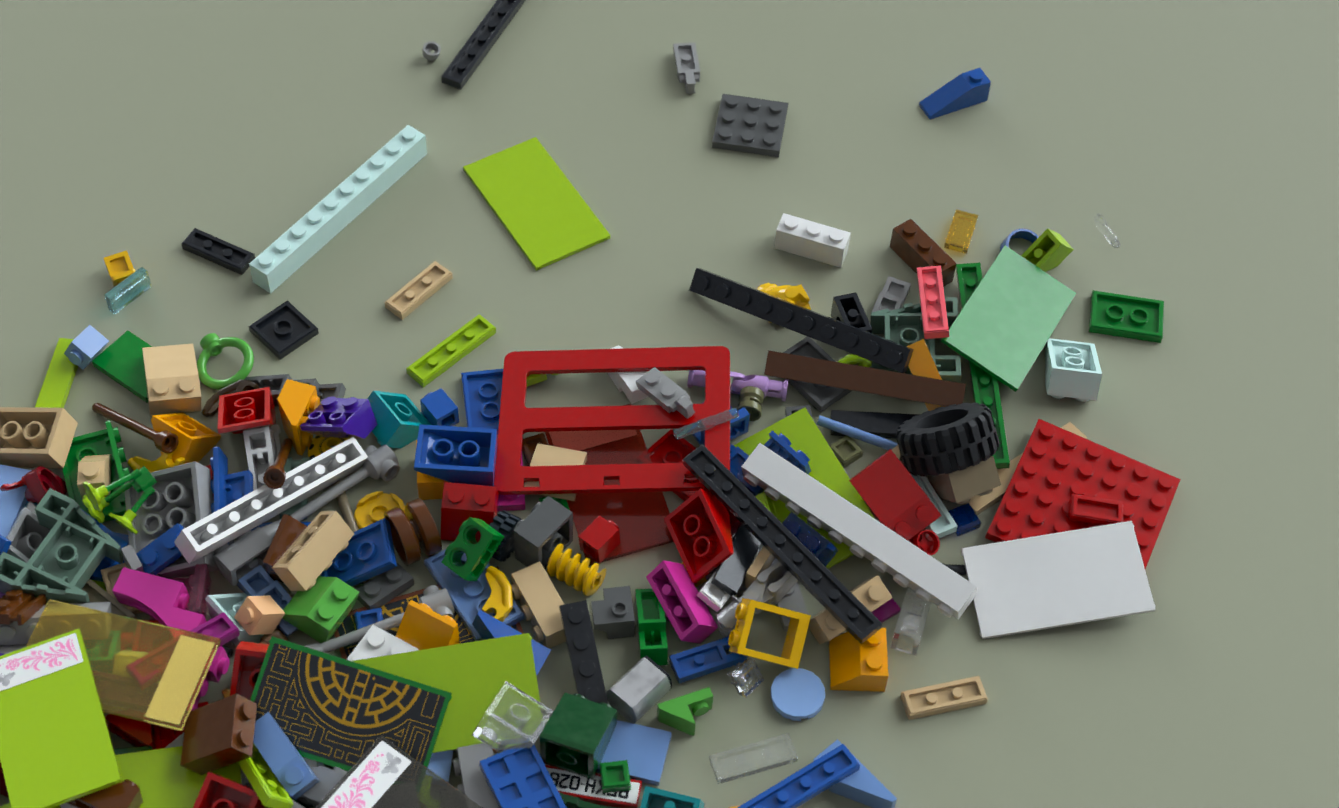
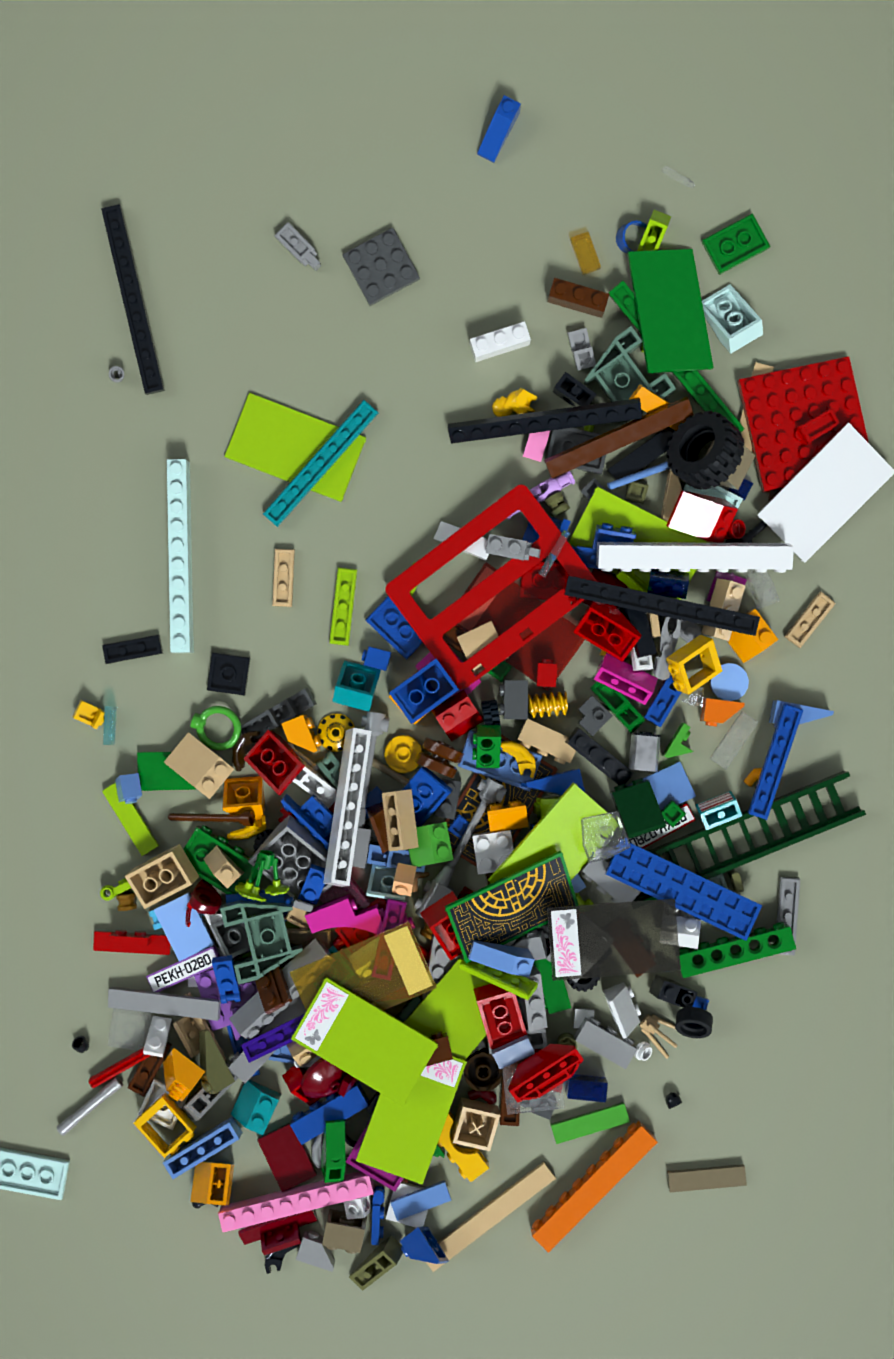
camera: 40 degrees left, 35 degrees up
(219, 734) = (459, 974): reddish brown brick -> none
(275, 475) = (345, 801): reddish brown piece -> none
(341, 418) = (334, 722): dark purple slope -> none
(546, 225) = (320, 463): none -> teal tile
(762, 710) = (718, 711): none -> orange slope
(776, 340) = (536, 445): none -> bright pink slope
(932, 302) = (620, 344): coral tile -> none

